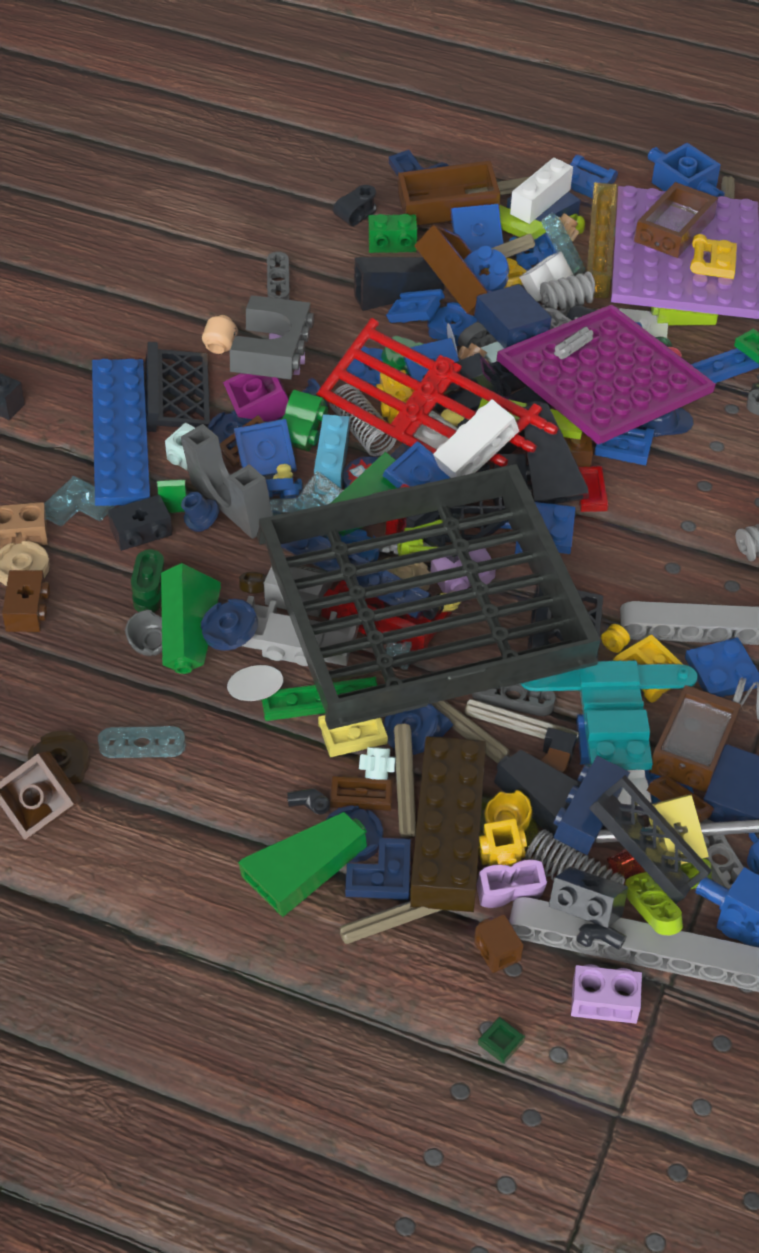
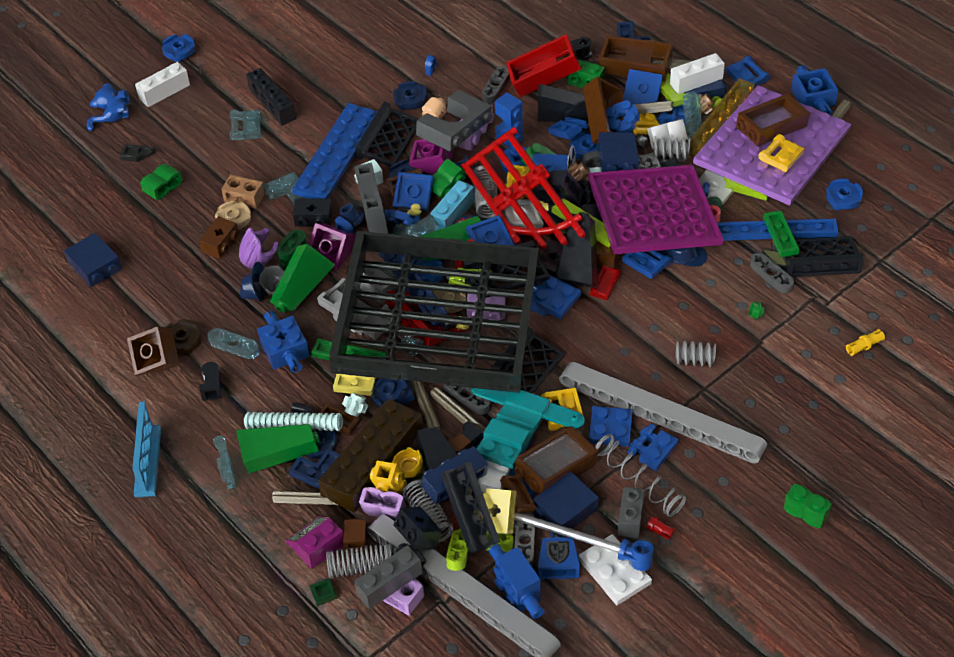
camera: 30 degrees right, 0 degrees up
(96, 597) = (251, 248): none -> medium lavender hair
(118, 652) = (250, 285): none -> dark blue piece
(120, 950) = (146, 454): none -> dark azure fence
(147, 803) = (212, 388): none -> black leg
(172, 493) = (341, 198): green slope -> none
(173, 277) = (430, 64): none -> blue tile
(182, 327) = (418, 97): none -> dark blue plate
(197, 550) = (332, 243): none -> magenta slope
(198, 528) = (343, 225): none -> blue tile
(218, 714) = (283, 342): none -> blue brick
(229, 624) = (317, 290): dark blue tile -> none
(252, 912) = (224, 462): none -> clear light blue plate
(255, 683) = (318, 331): white sticker -> none
(304, 818) = (320, 421): none -> light aqua piece
(329, 241) = (541, 65): none -> red piece
(344, 301) = (511, 111): none -> blue arch
(405, 781) = (368, 412): dark tan axle -> none
(446, 970) = (316, 539): none -> magenta slope
(476, 441) = (529, 226): white brick -> none
(501, 992) = (332, 566): none -> light grey piece
(573, 343) = (642, 182): light grey axle -> none
(598, 980) = (388, 577): none -> dark grey brick
(615, 638) = (552, 381): yellow bush -> none

